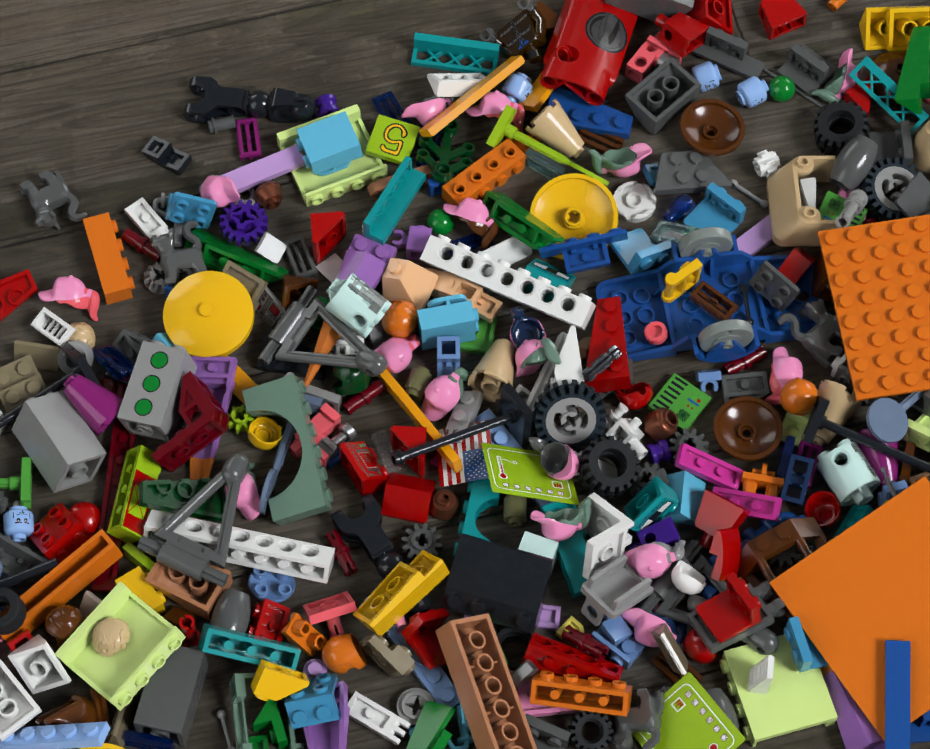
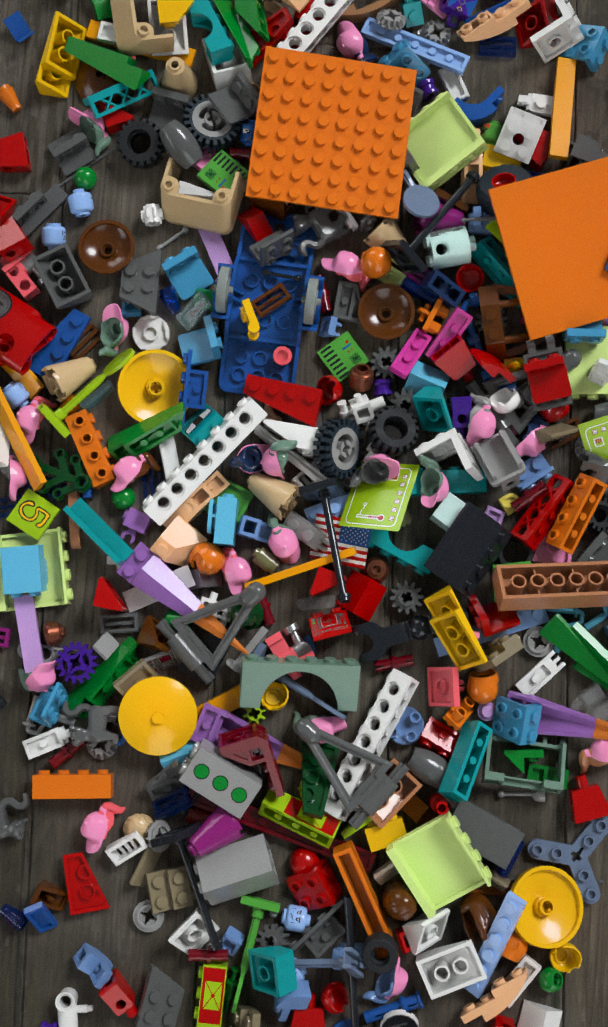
camera: 65 degrees left, 20 degrees up
(110, 636) = (427, 869): tan hair -> none
(277, 681) = (500, 745): yellow slope -> none
(356, 304) = (193, 591): light aqua cylinder -> none
(524, 673) = (544, 551): flat silver bar -> none
(601, 363) = (306, 408): black axle -> none
(616, 630) = (530, 469): medium blue slope -> none
(852, 206) = (223, 159): light grey pin -> none

